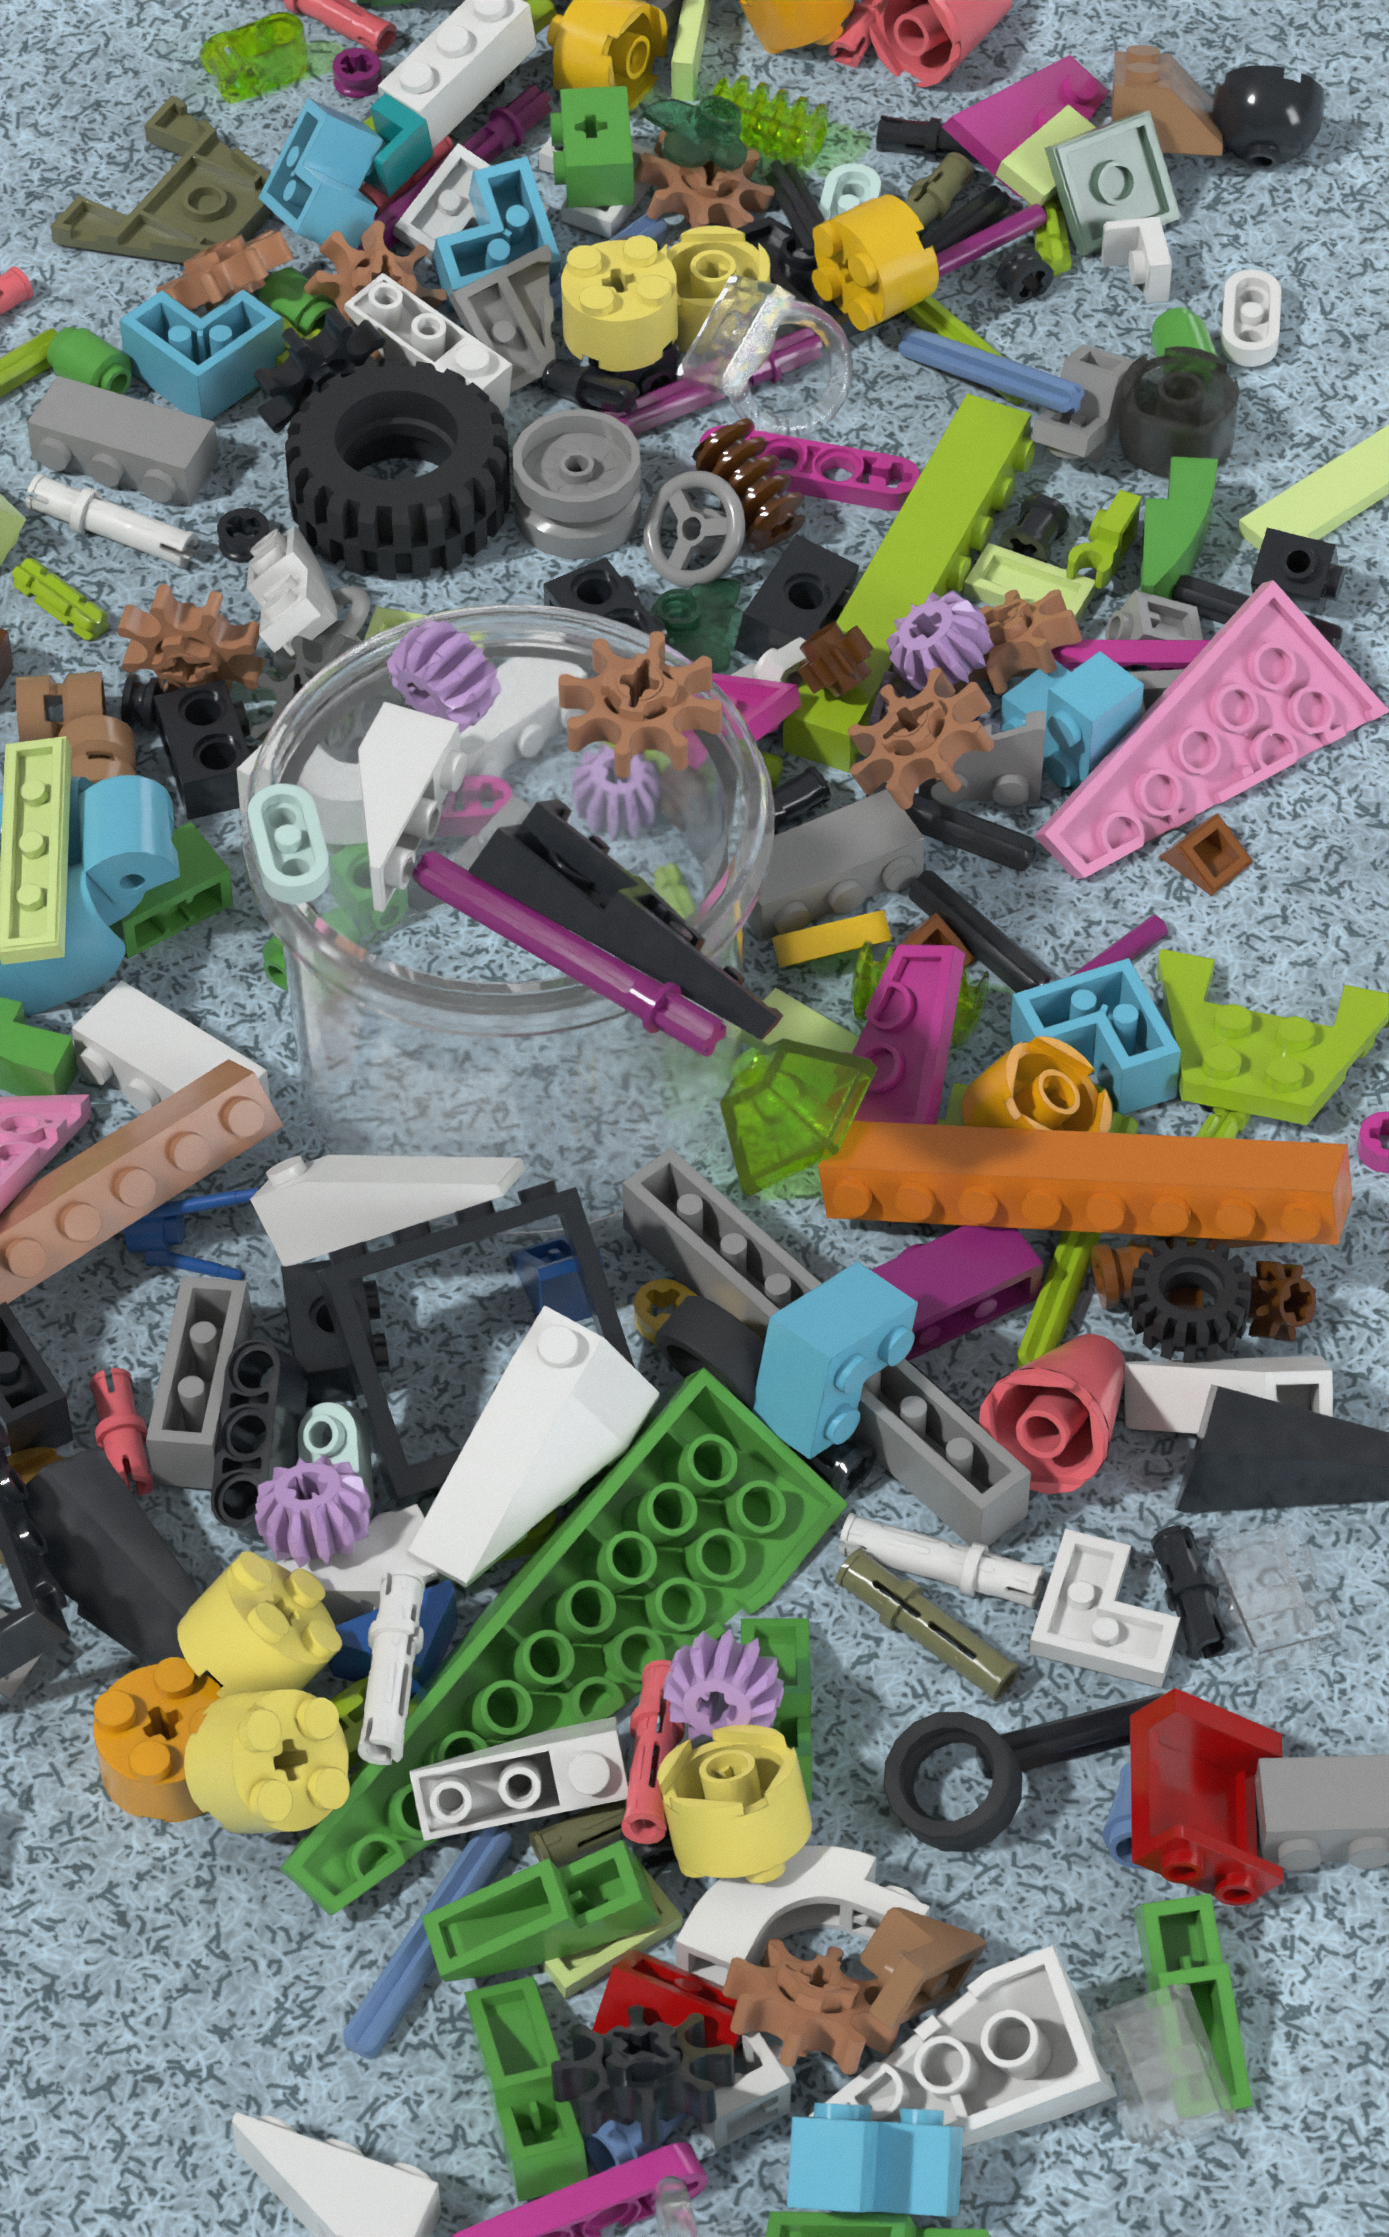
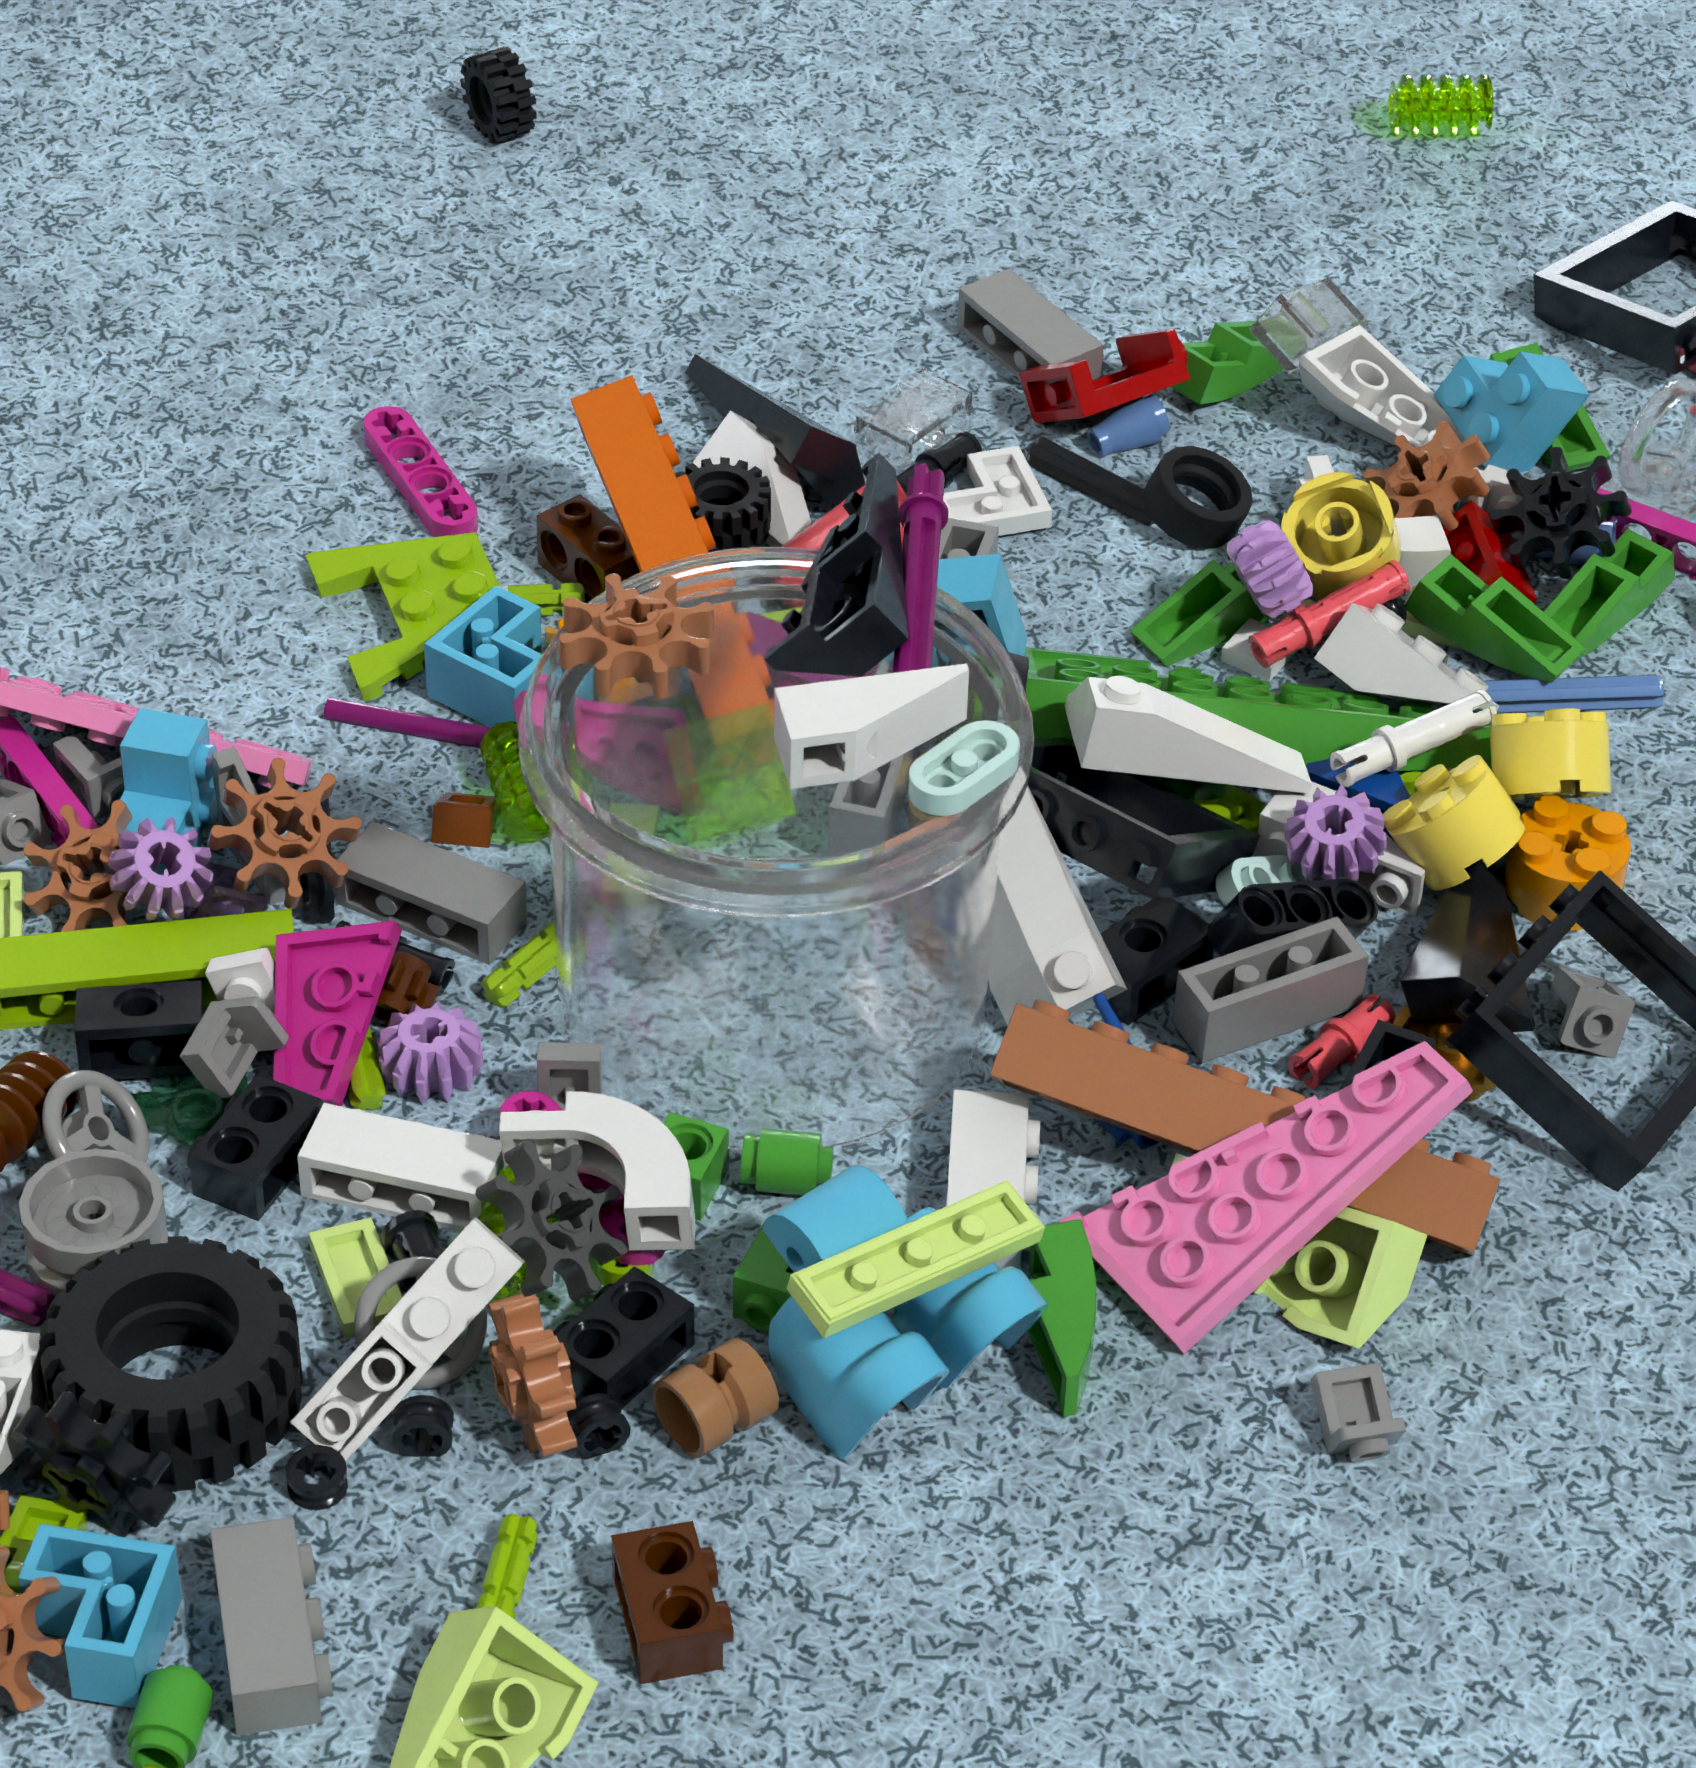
camera: 125 degrees left, 10 degrees down
(79, 694) = (664, 1463): medium nougat wheel -> none
(90, 512) = (377, 1606): white pin -> none
(237, 602) = (423, 1427): none -> black bush
(444, 673) = (722, 731): lavender gear -> none
(713, 626) = (229, 1041): none -> light grey bracket
(831, 938) = (511, 847): yellow beam -> none
(835, 659) = (217, 920): reddish brown gear -> none
(867, 1578) = (1079, 581): olive pin -> none
(917, 1964) = (1360, 433): medium nougat slope -> none
(966, 1567) = (1039, 620): white pin -> none
(978, 933) = (428, 784): black axle -> none
(1208, 855) = (231, 710): dark orange slope -> none

